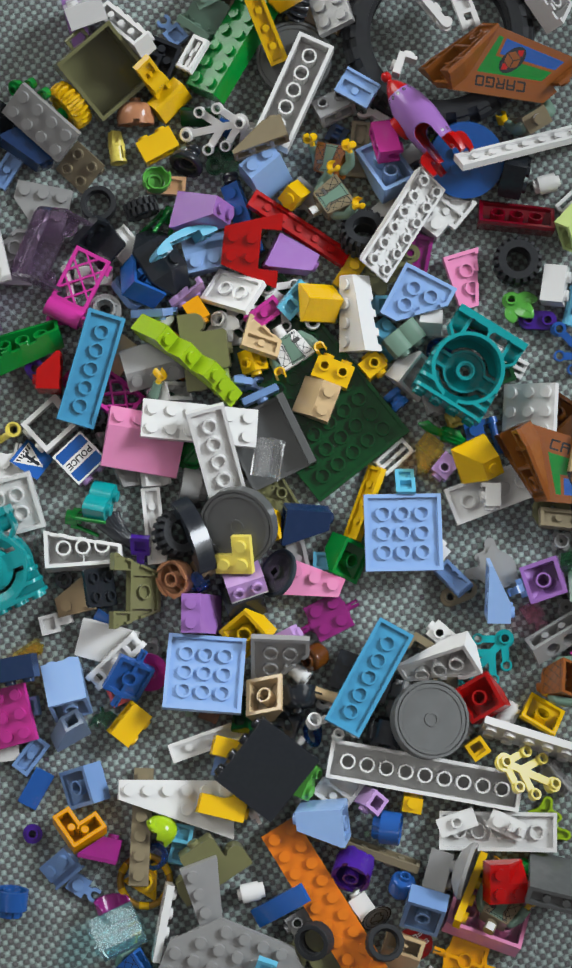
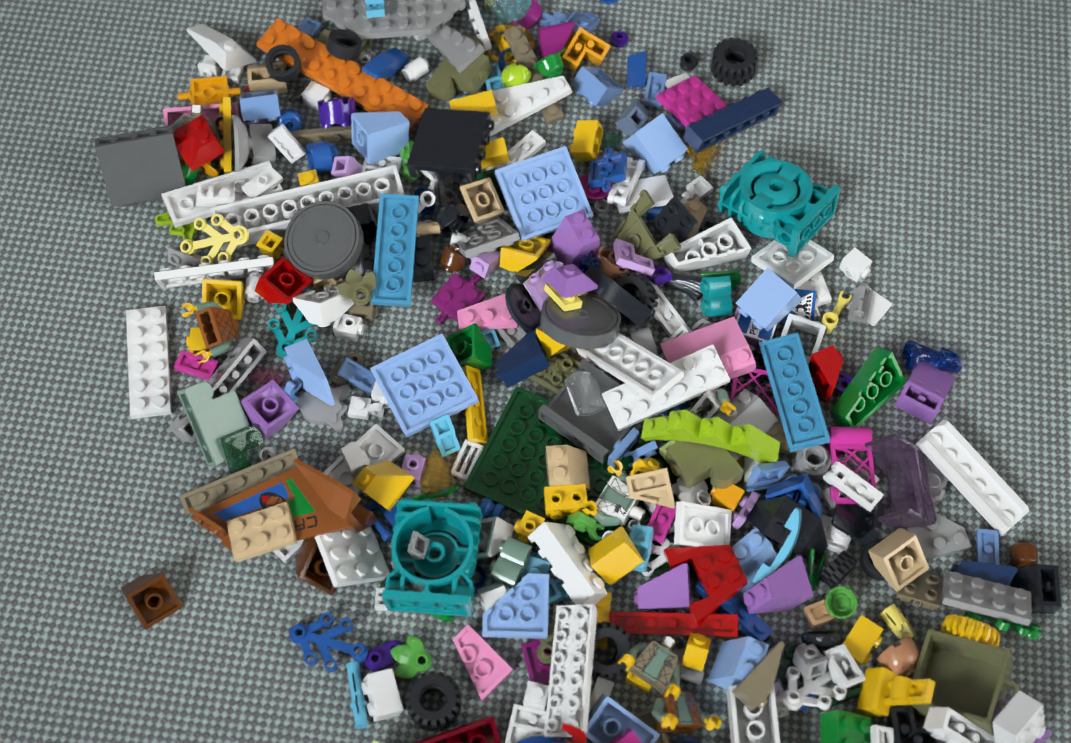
camera: 155 degrees right, 20 degrees down
(60, 465) = (768, 300): none -> light blue slope
(88, 190) = (899, 558): none -> tan slope
(90, 263) = (853, 486): none -> white plate
(122, 818) = (551, 65): none -> green piece
(162, 568) = (626, 258): none -> lavender plate
(186, 125) = (843, 667): none -> white slope
(213, 142) = (809, 661): none -> light grey brick
(230, 563) = (569, 281): none -> medium lavender slope
(331, 343) = (583, 522): none -> bright green plate
(416, 856) = (286, 143): none -> white plate
(420, 656) = (356, 285): none -> olive plate
(461, 549) = (363, 407): none -> white plate
(477, 378) = (418, 546): none -> light grey slope

